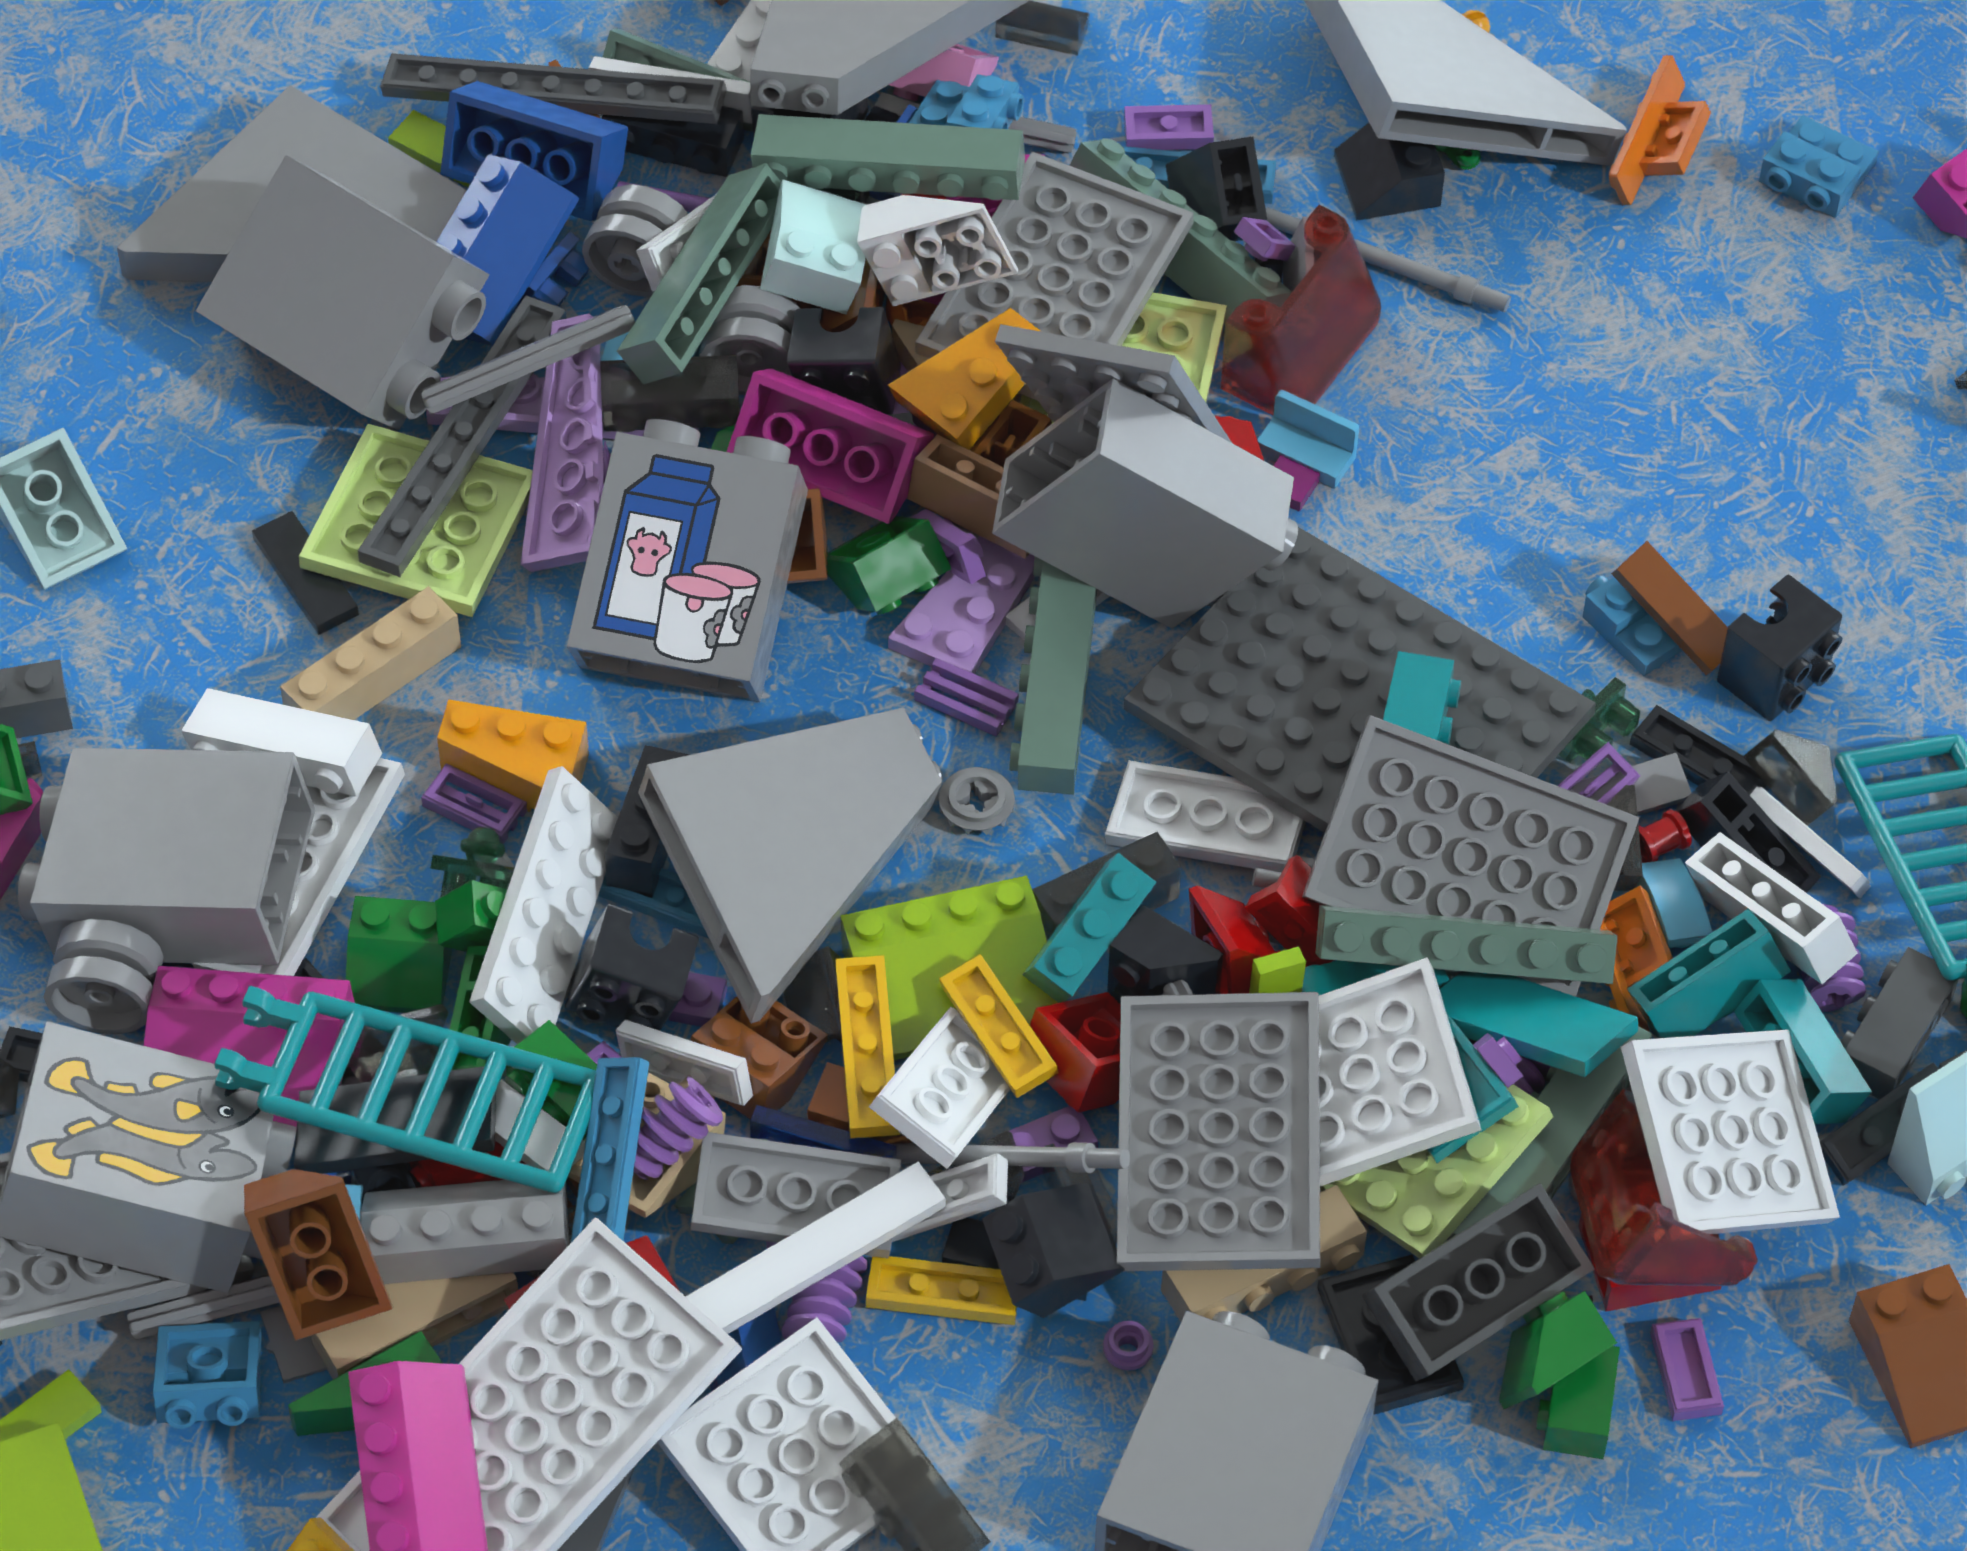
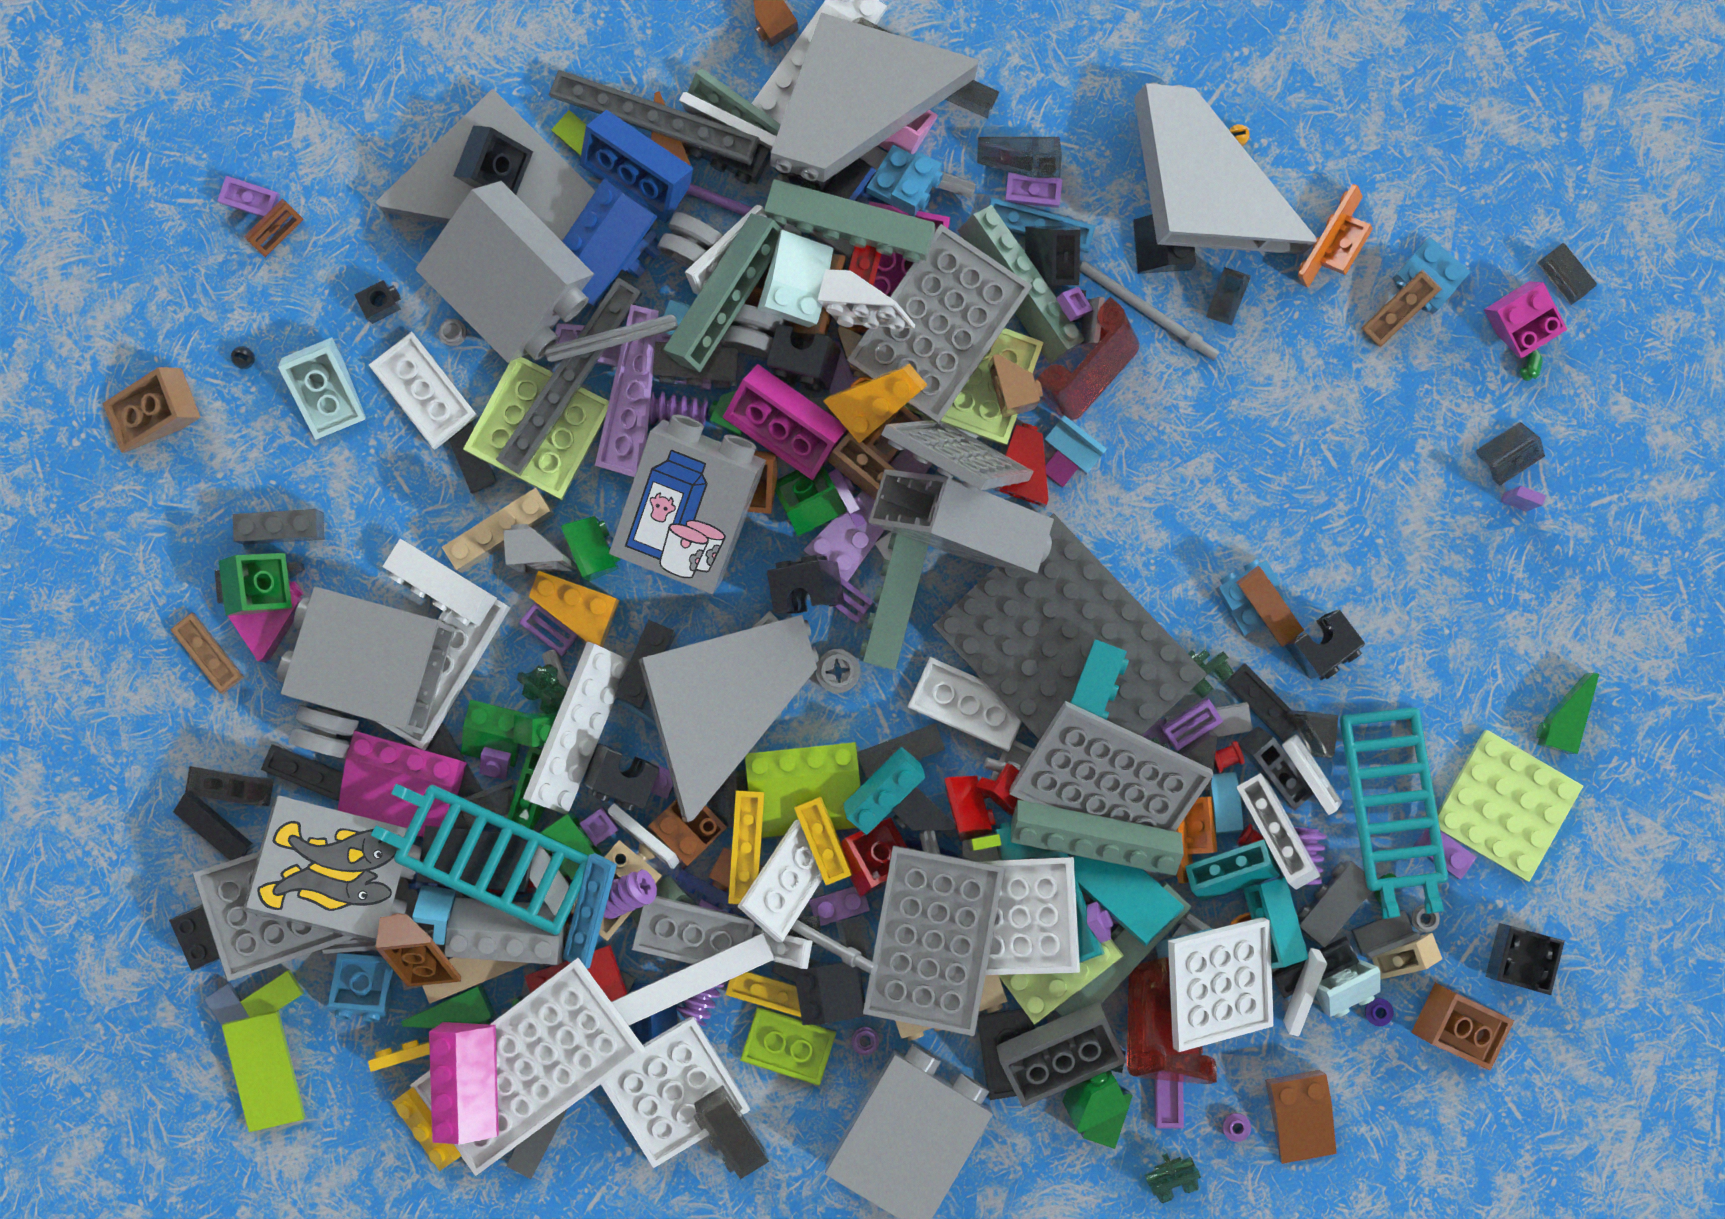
camera: 10 degrees right, 30 degrees up
(133, 384) = (367, 297): none -> black brick
(221, 496) = (423, 390): none -> white tile
(259, 415) = (452, 332): none -> light grey plate
(299, 1471) = (409, 1051): none -> yellow plate
(308, 139) = (491, 159): none -> black slope
(406, 993) = (495, 763): none -> medium lavender plate
(449, 648) = (531, 552): none -> light grey slope
(529, 665) = (590, 547): none -> green slope
(899, 655) = (795, 580): none -> black piece
(992, 1375) = (788, 1046): none -> lime tile
(1138, 81) = (1022, 155): none -> clear smoke slope
(1196, 336) = (1014, 386): none -> medium nougat slope
(1506, 214) = (1227, 295): none -> clear smoke slope
(1706, 1498) = (1171, 1175): none -> clear green hips
(1782, 201) = (1401, 308): none -> medium nougat tile
(1816, 1405) = (1228, 1124): none -> medium lavender plate
(1879, 1149) = (1305, 992): none -> white tile

